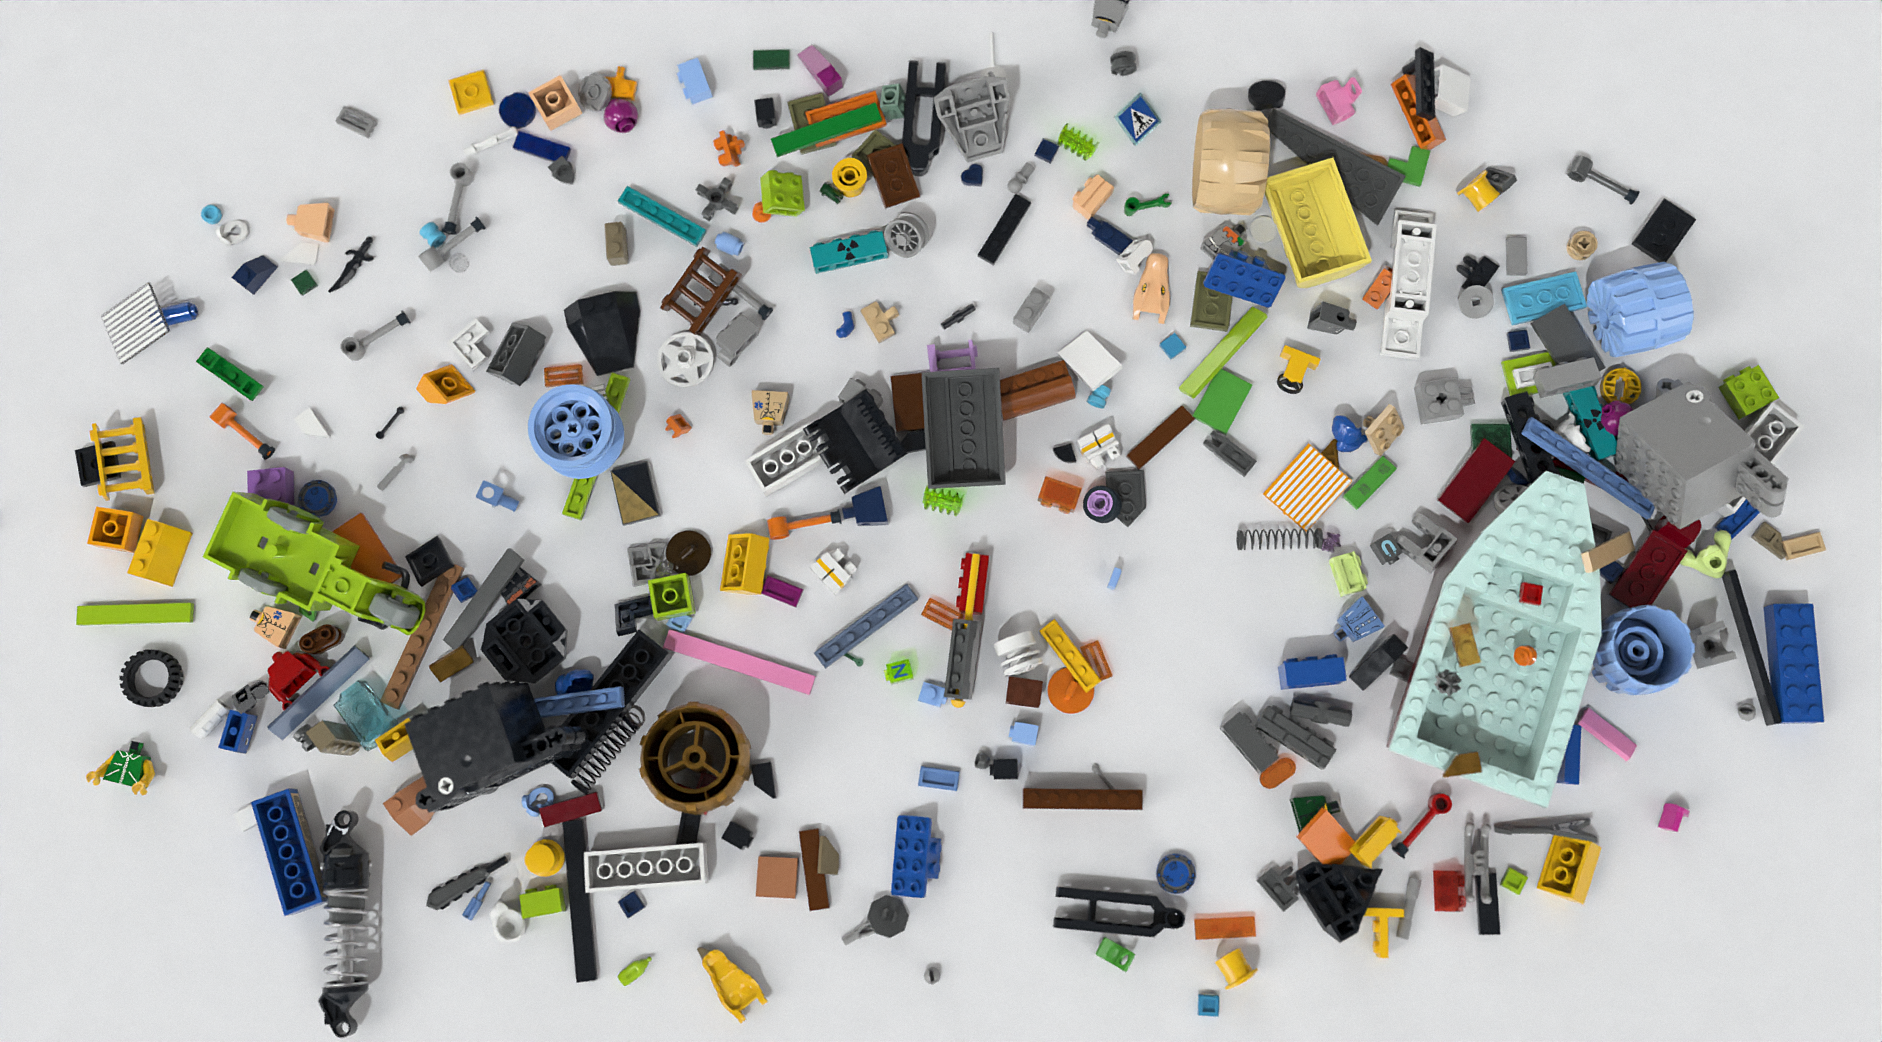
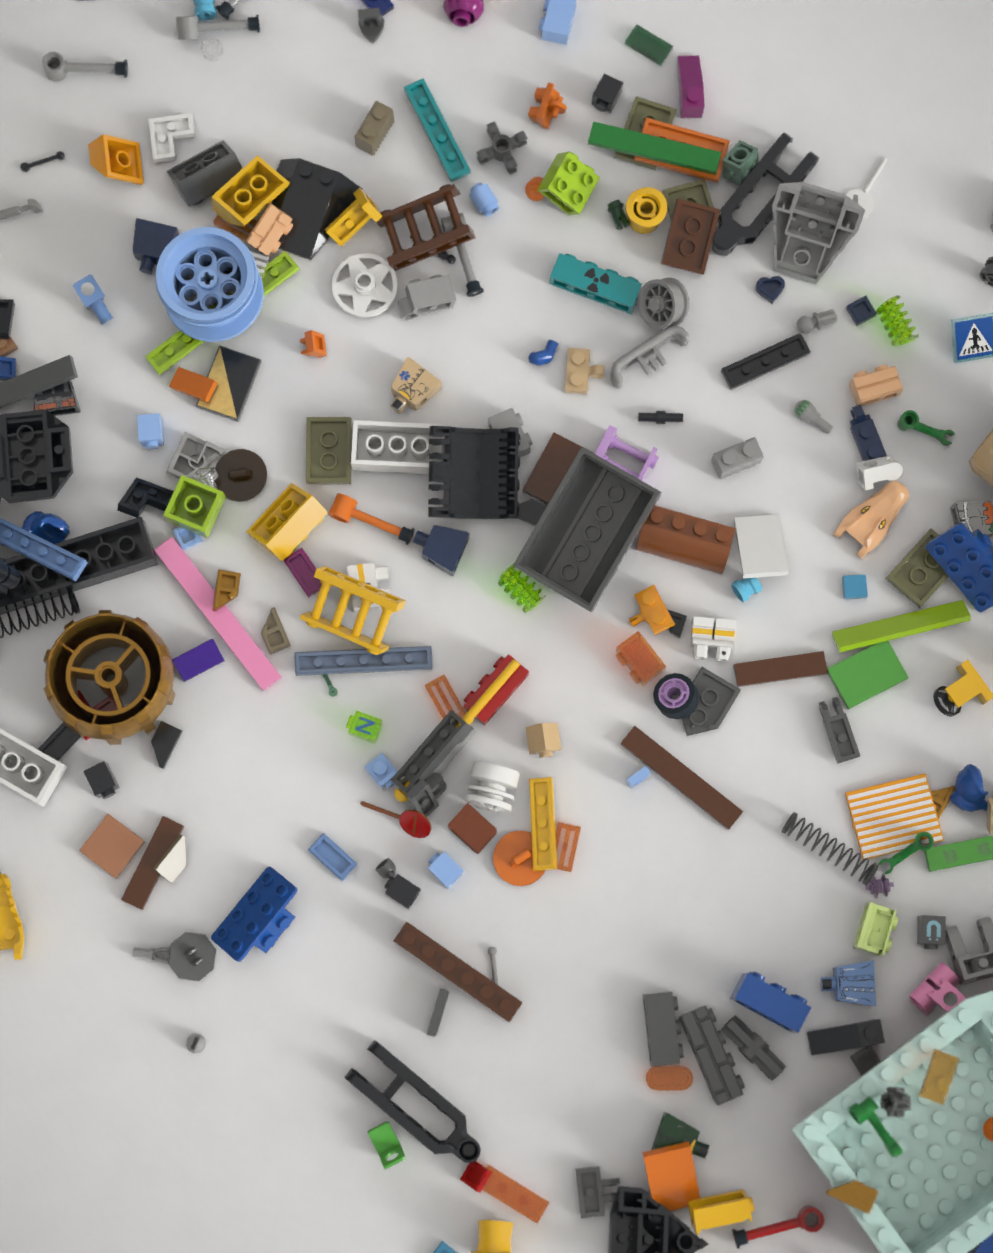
camera: 25 degrees right, 0 degrees up
(512, 429) = (150, 241): none -> dark blue torso
(558, 348) = (248, 192): none -> yellow slope
(591, 364) = (269, 230): none -> light nougat brick
(602, 564) = (150, 430): none -> light blue brick
(610, 511) = (193, 384): none -> orange tile
(645, 317) = (353, 218): none -> yellow bracket
(733, 640) = (226, 588): none -> pearl gold tile
(740, 494) = (328, 450): none -> olive plate
(748, 704) = (198, 660): none -> dark purple slope
(789, 649) = (274, 633): none -> dark tan tile
(839, 576) = (369, 595): none -> yellow fence
(919, 277) = (647, 353): none -> light grey piece
(974, 690) = (424, 793): none -> dark grey hinge
(977, 716) = (411, 821): none -> red piece
(1030, 596) = (543, 739): none -> tan brick
(1045, 455) = (652, 611): none -> light orange plate
(1058, 246) = (806, 411): none -> light grey piece
(1086, 833) = (438, 1012): none -> dark grey tile
(1144, 558) = (681, 777): none -> reddish brown tile
(1175, 873) = (500, 1107): tile -> none
(1191, 932) = (476, 1176): none -> red tile
(1333, 505) = (912, 848): none -> green brick
(1416, 587) = (935, 988): none -> bright pink piece
(1432, 702) = (865, 1111): none -> green brick

